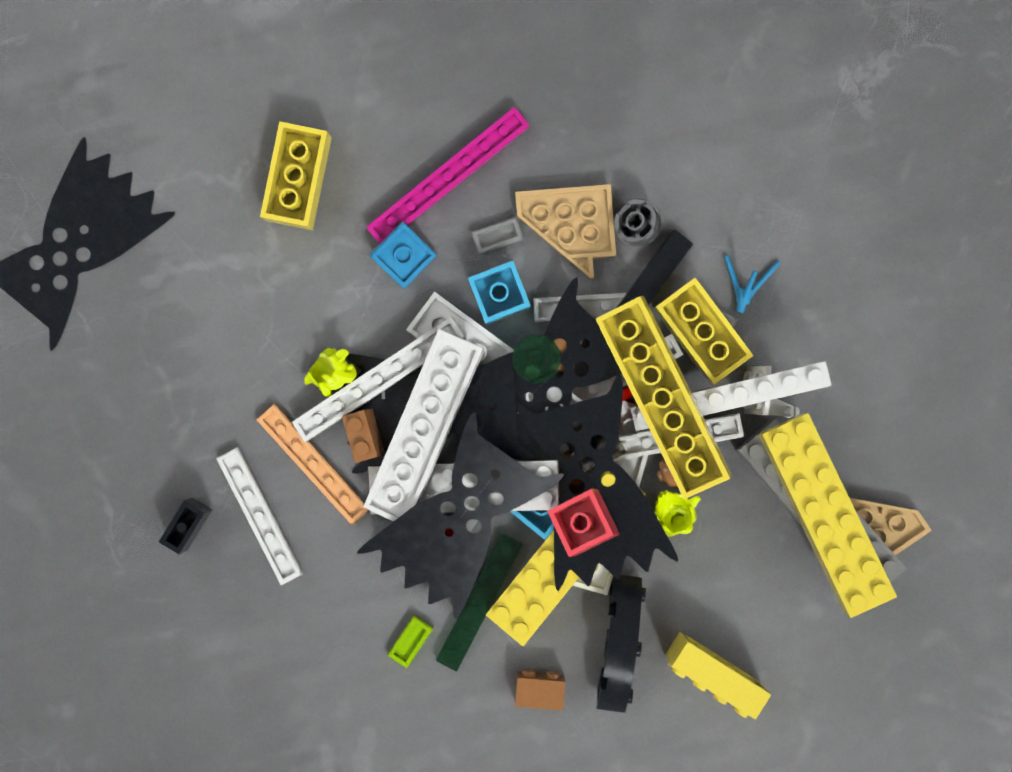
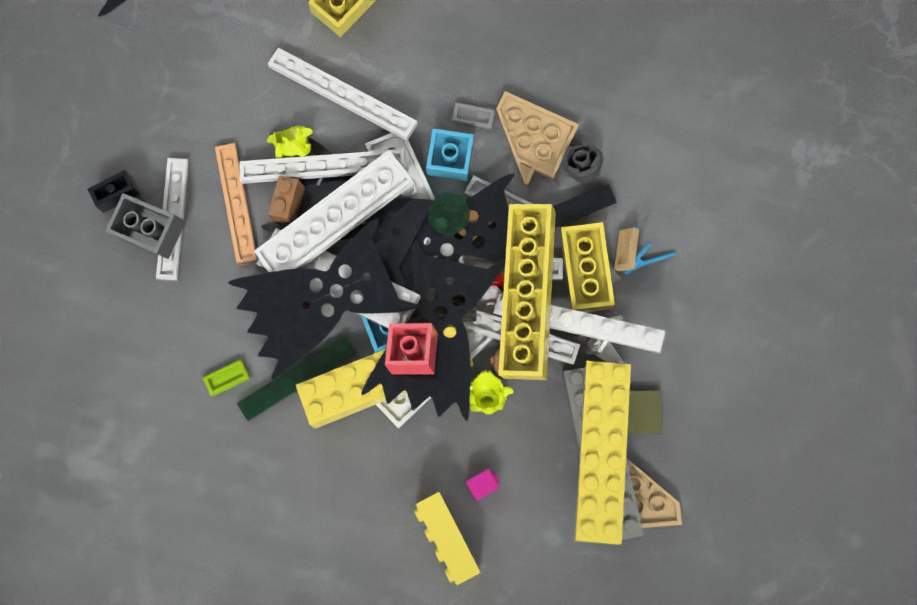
camera: 25 degrees right, 10 degrees down
(239, 544) = (145, 226): none -> dark grey brick
(352, 291) = (342, 94): none -> white plate
(402, 255) = (396, 88): dark azure tile -> none
(450, 174) = (461, 54): dark pink plate -> none
(540, 690) = (302, 472): medium nougat brick -> none
(621, 644) = (385, 470): black brick -> none
(719, 601) = (483, 484): none -> dark pink brick
(730, 287) = (626, 249): none -> tan tile
(838, 439) = (645, 412): none -> olive tile

